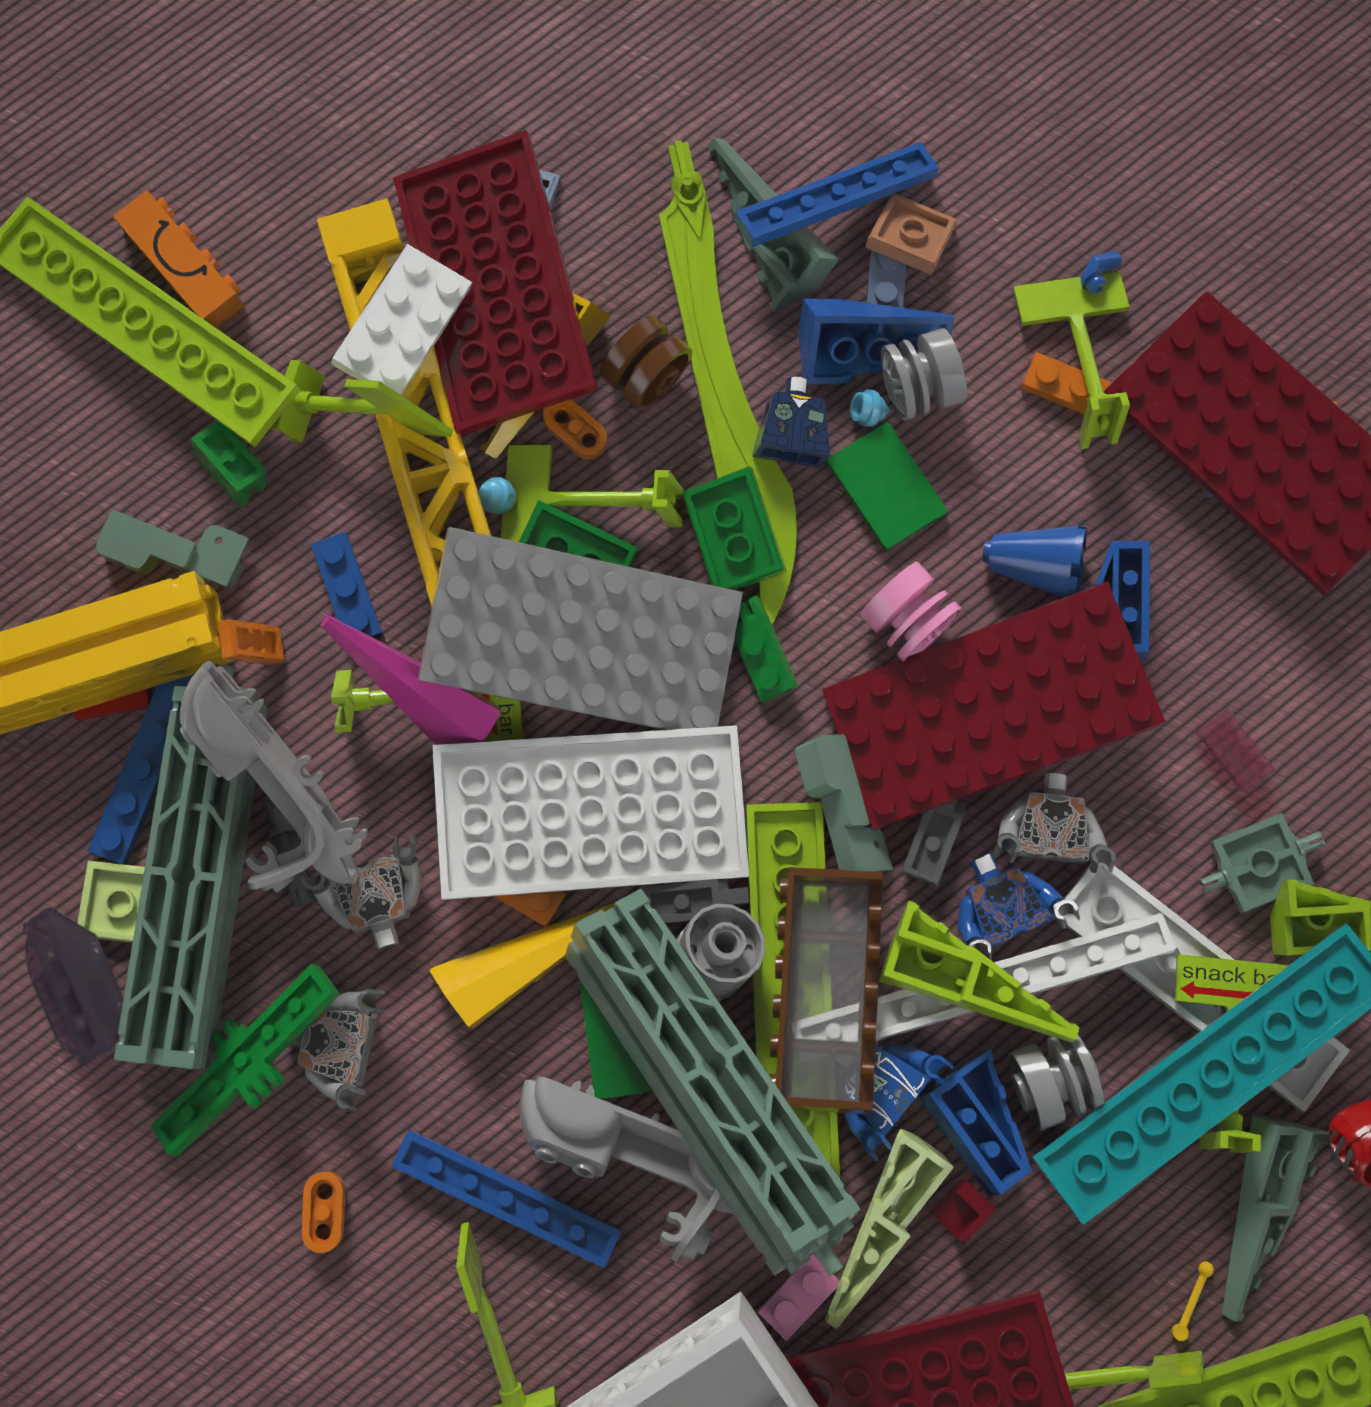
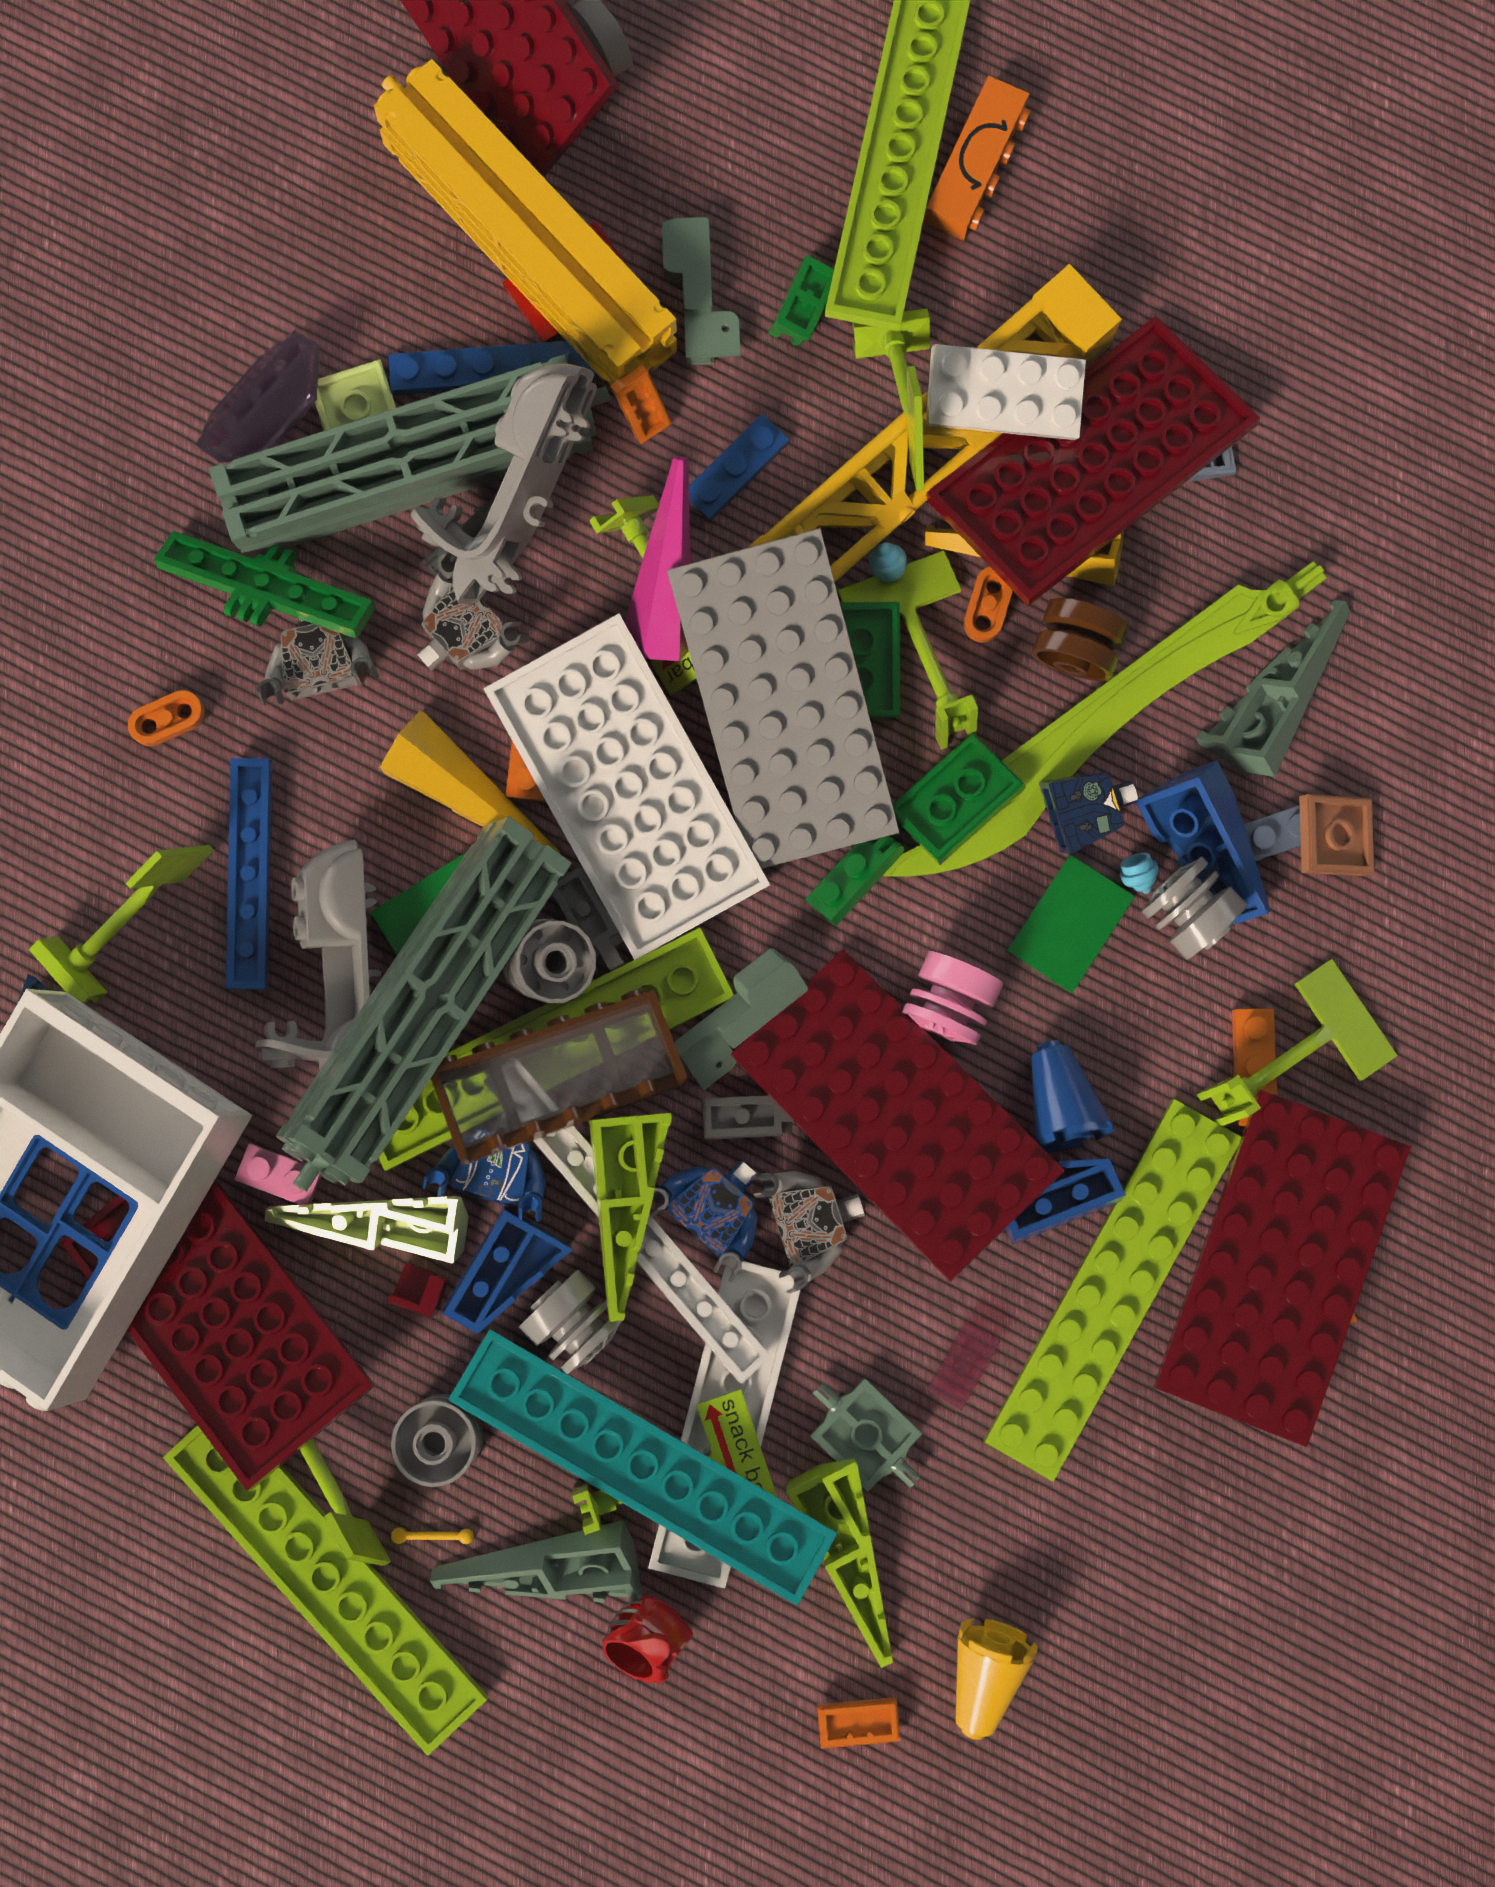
camera: 65 degrees right, 5 degrees up
(835, 194) = (1339, 744): blue plate -> none
(1091, 277) = (1386, 1029): blue arm -> none
(1112, 1255) = (436, 1441): none -> light grey wheel
(1222, 597) = (1112, 1290): none -> lime plate

